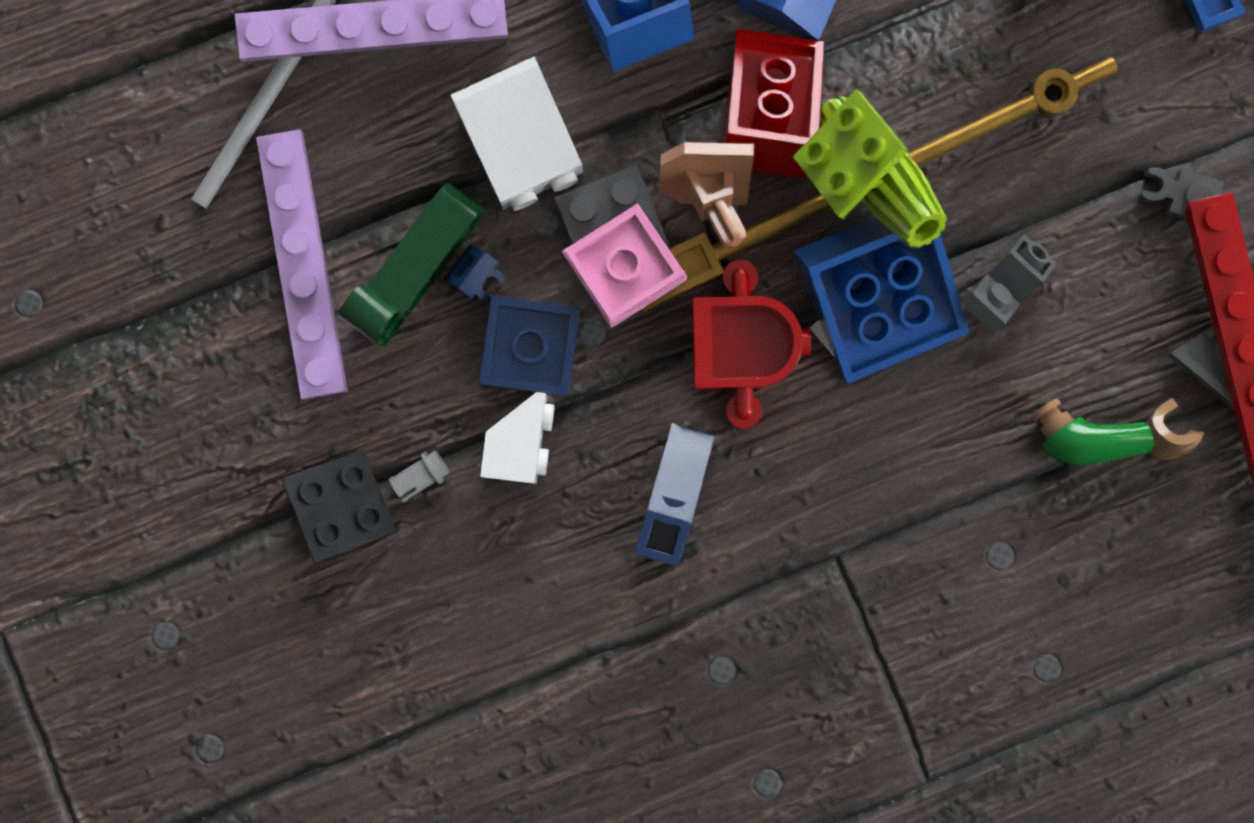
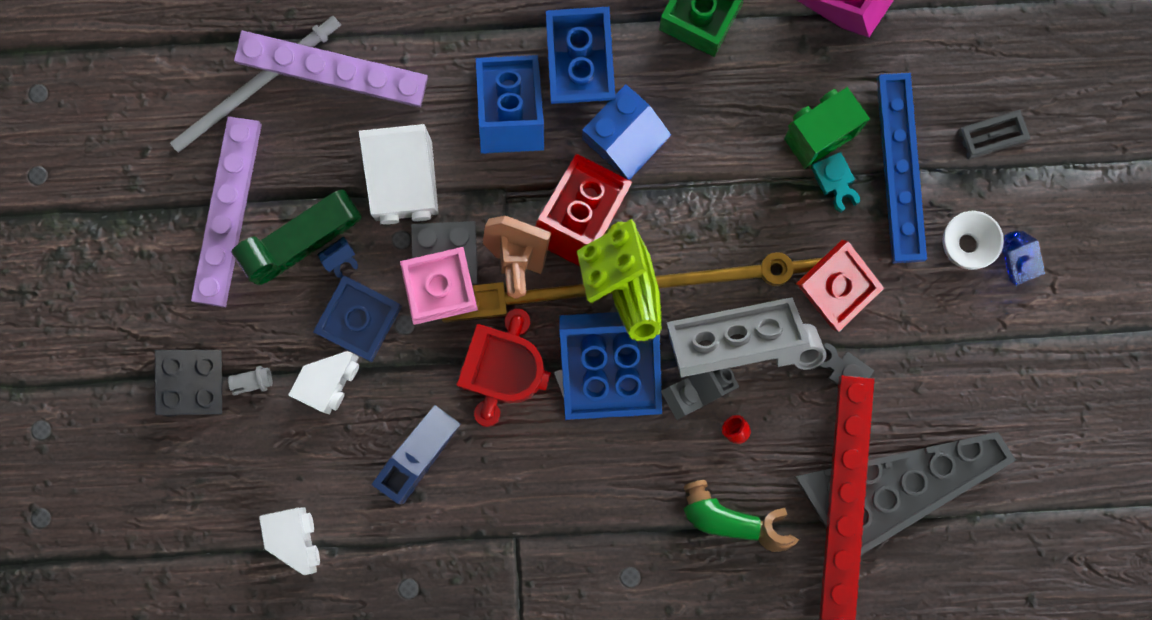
camera: 25 degrees right, 5 degrees down
(547, 662) = (289, 539): none -> white slope
(1073, 319) = (736, 429): none -> red hinge
(1076, 175) = (769, 330): none -> light grey hinge
(1145, 85) = (840, 285): none -> plate

